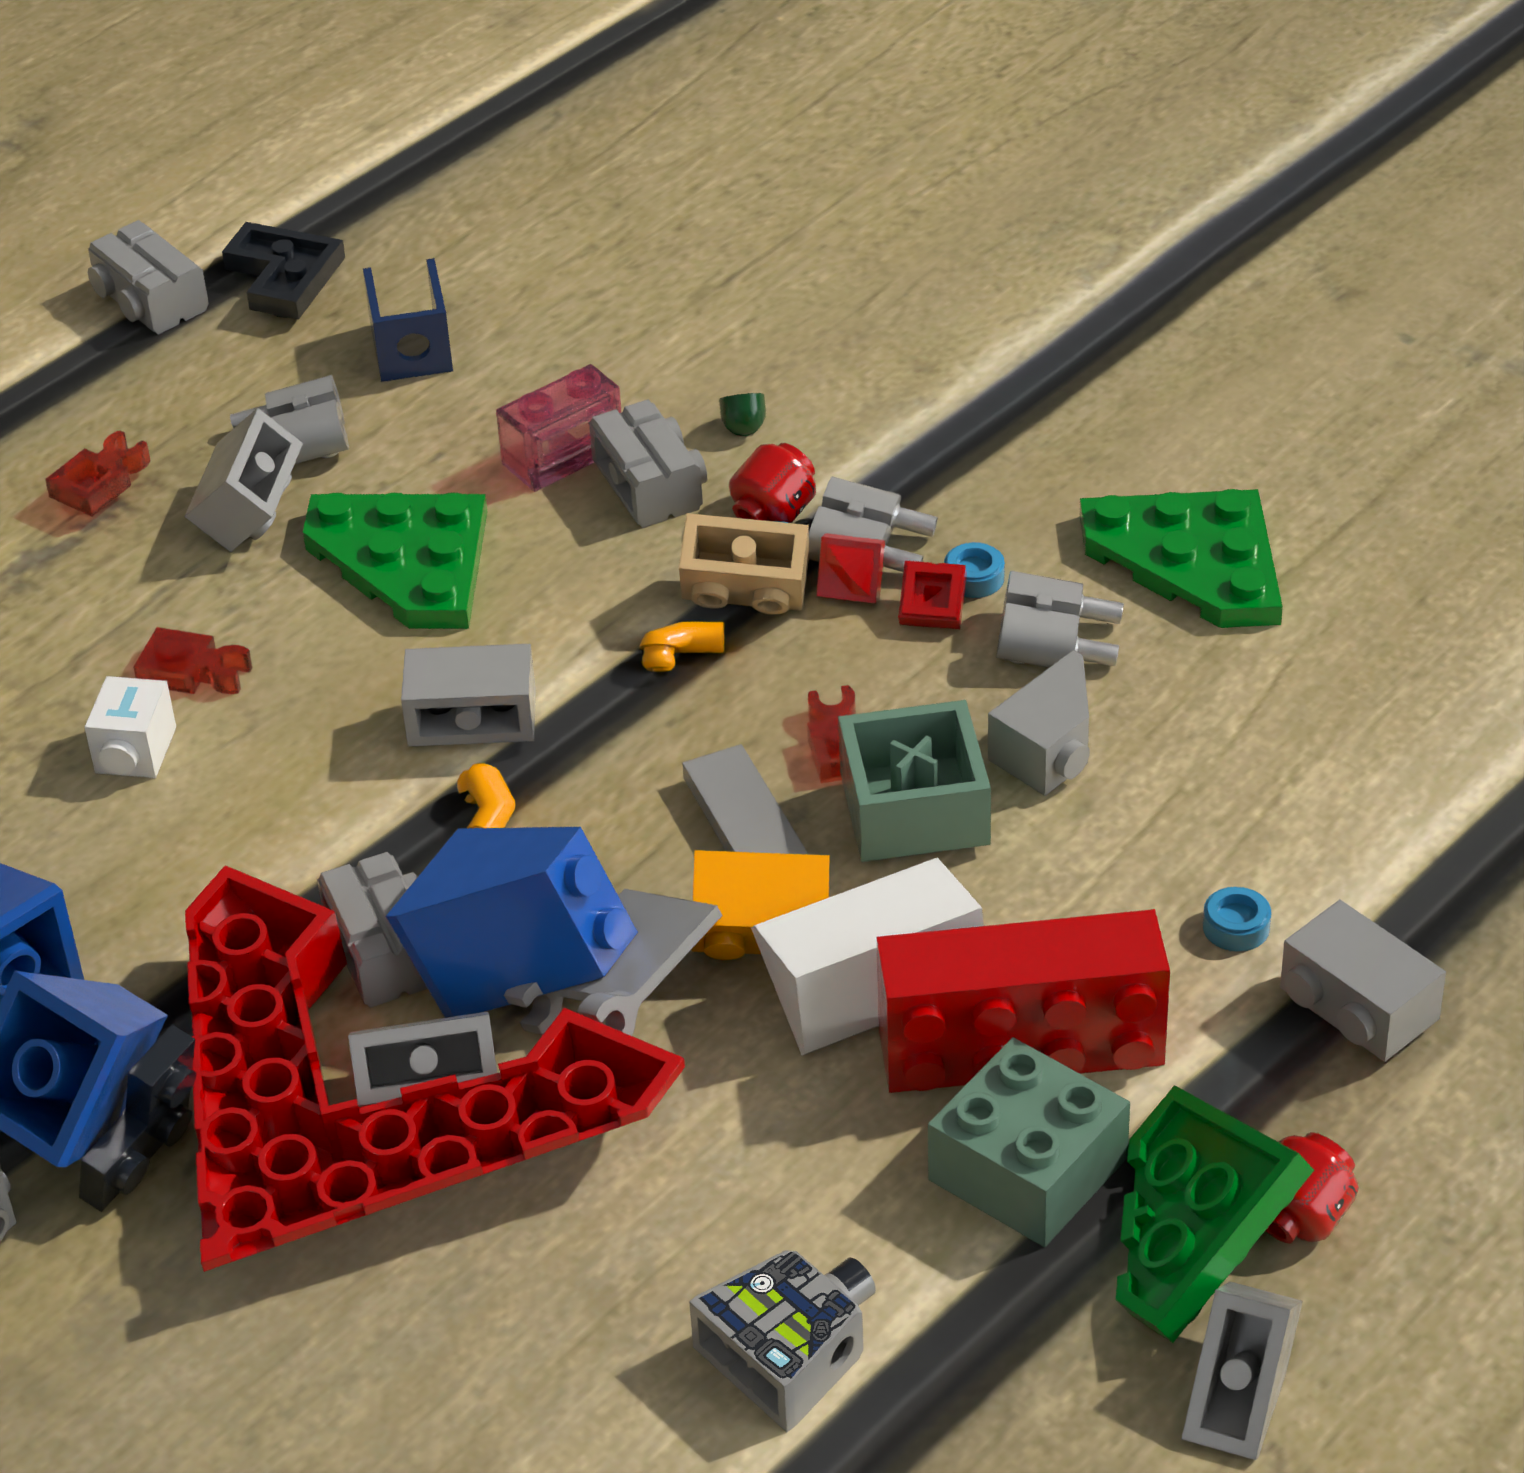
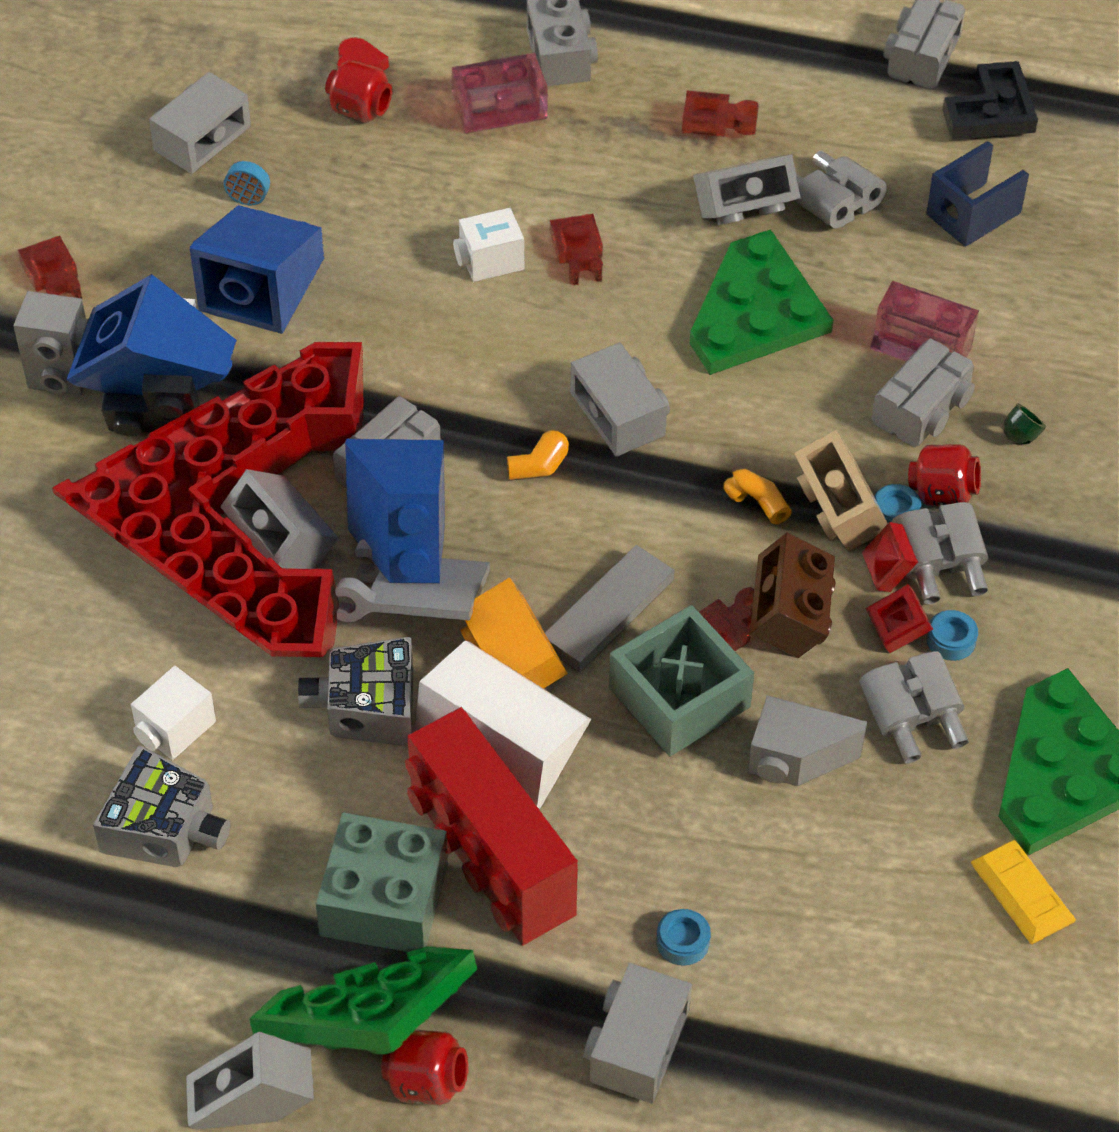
camera: 60 degrees right, 10 degrees up
(640, 1268) = (172, 713): none -> white brick
(740, 1066) = (366, 691): none -> torso
(857, 652) = (793, 595): none -> reddish brown brick
(1325, 639) = (1023, 891): none -> yellow tile

